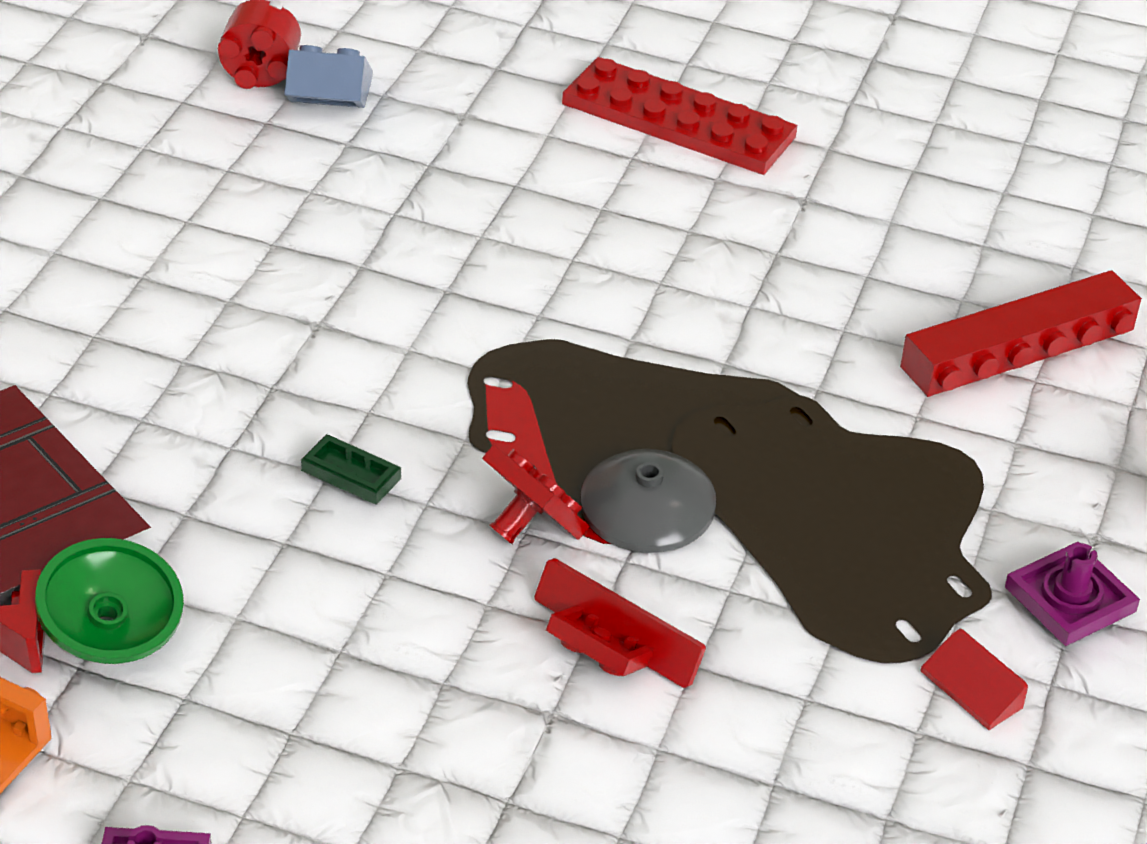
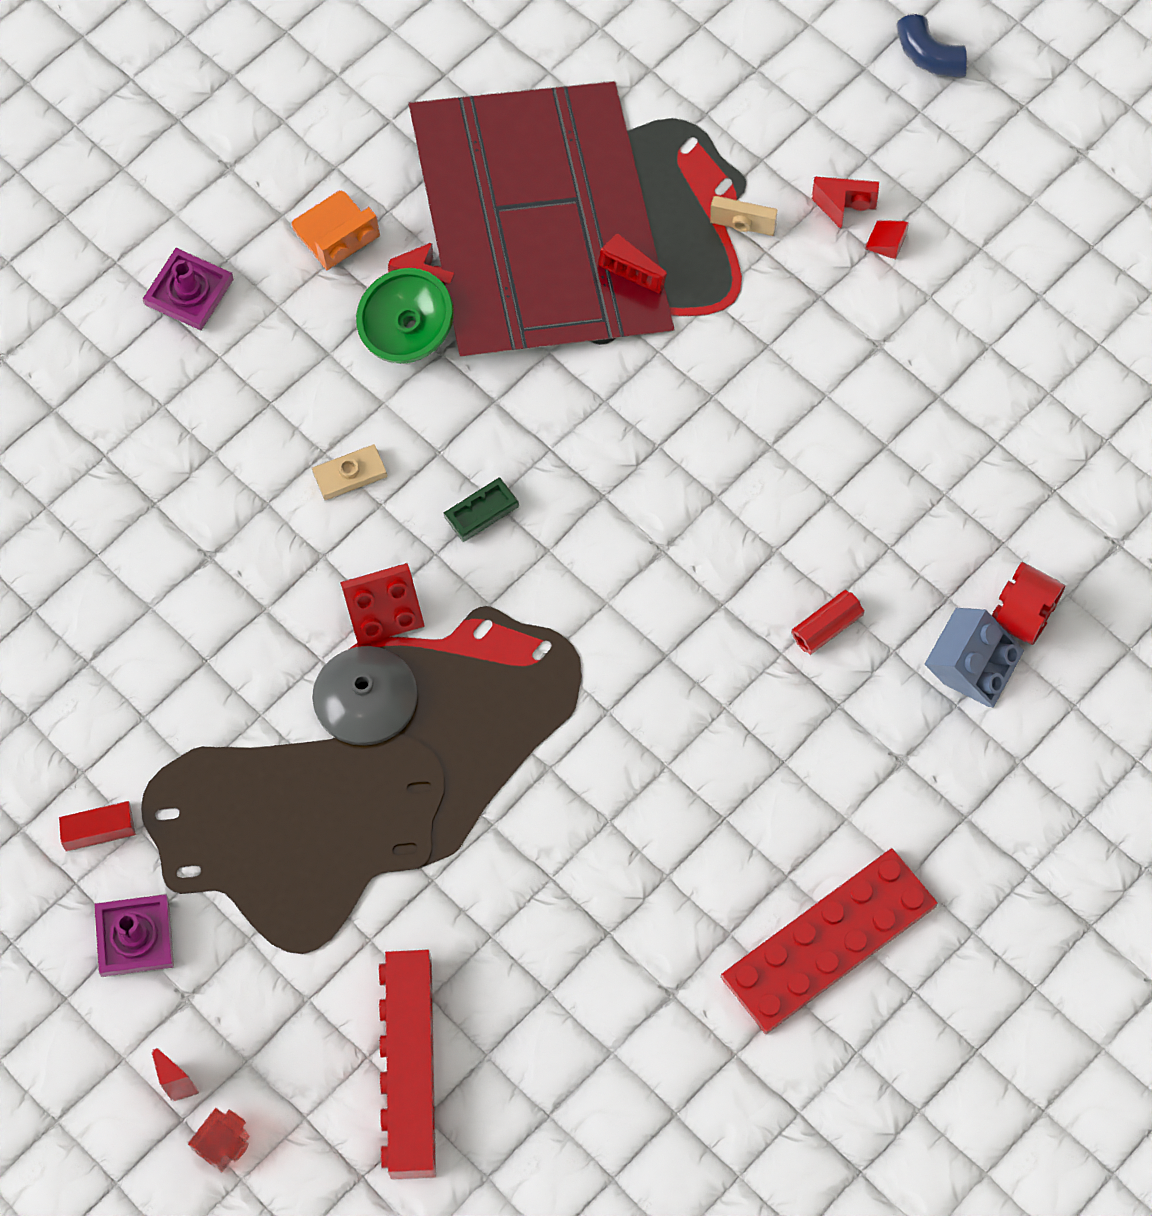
camera: 120 degrees right, 25 degrees up
(345, 178) = (827, 622): none -> red axle
(359, 610) = (349, 472): none -> tan plate
(613, 628) = (245, 604): red bracket -> none

